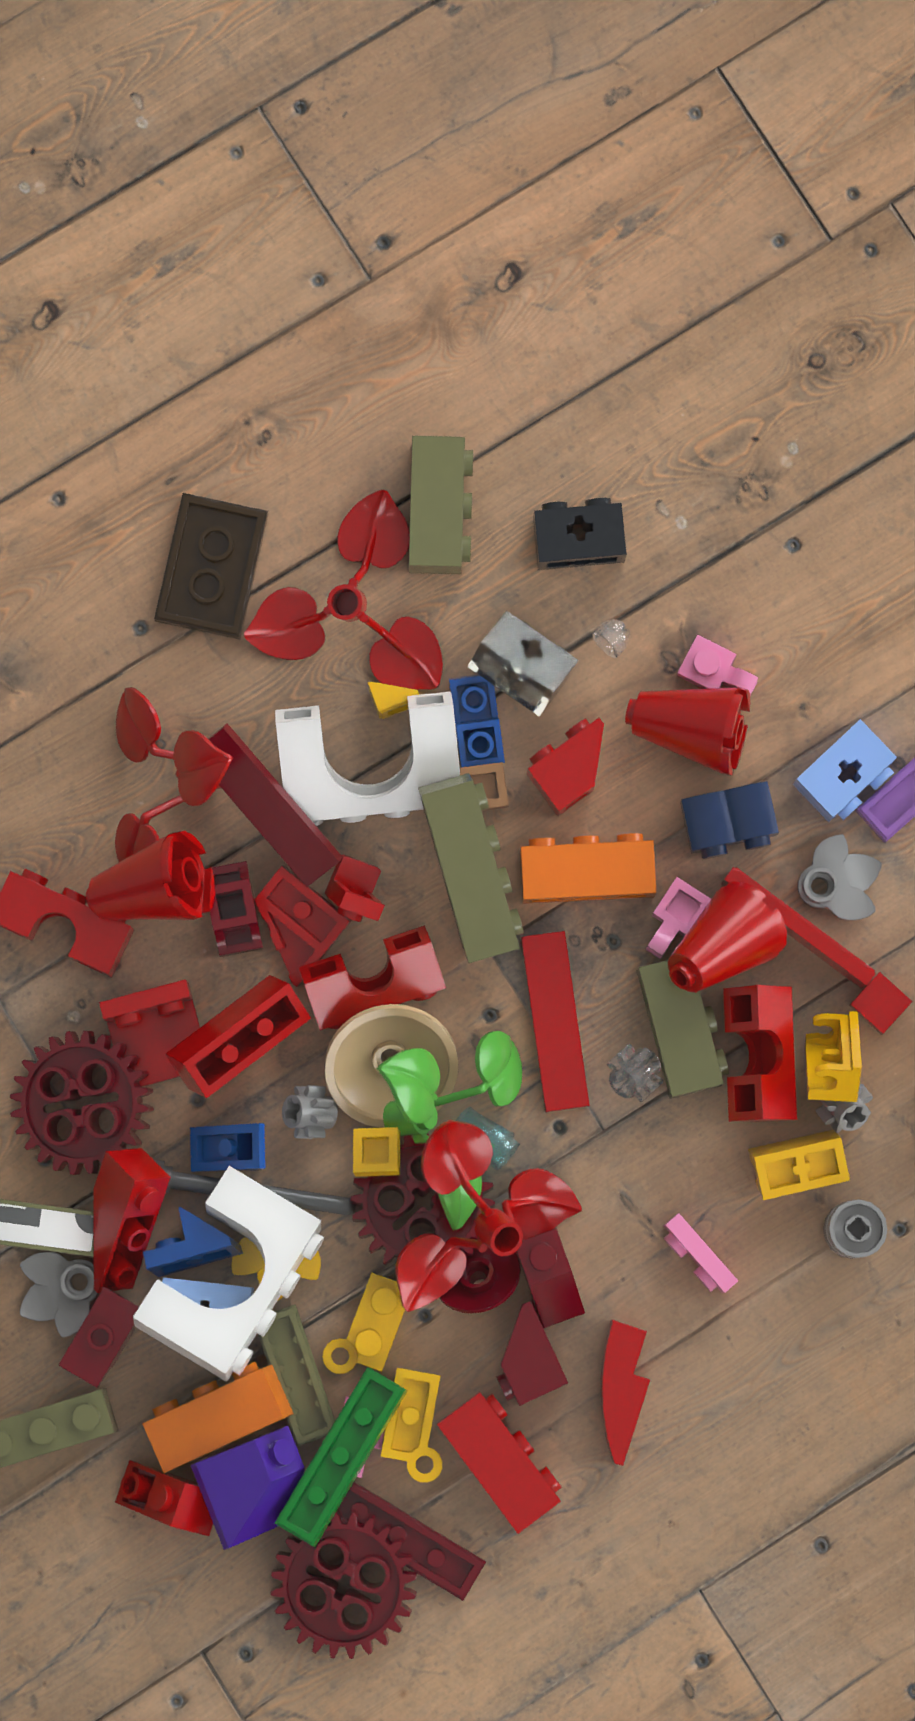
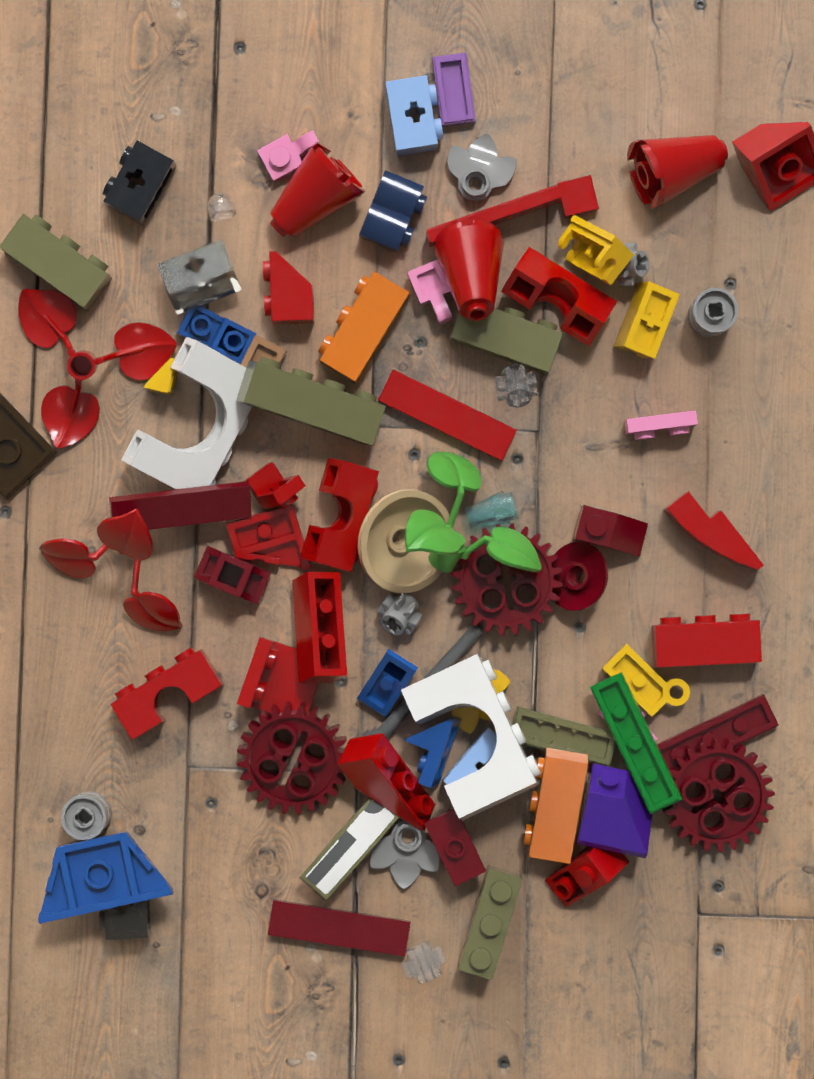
camera: 55 degrees left, 5 degrees up
(156, 883) = (184, 614): red cone -> none
(371, 1329) = (564, 665): yellow hinge -> none
(376, 1151) = (456, 588): yellow tile -> none
(450, 1159) = (495, 543): red plant -> none
(529, 1360) = (655, 579): dark red slope -> none

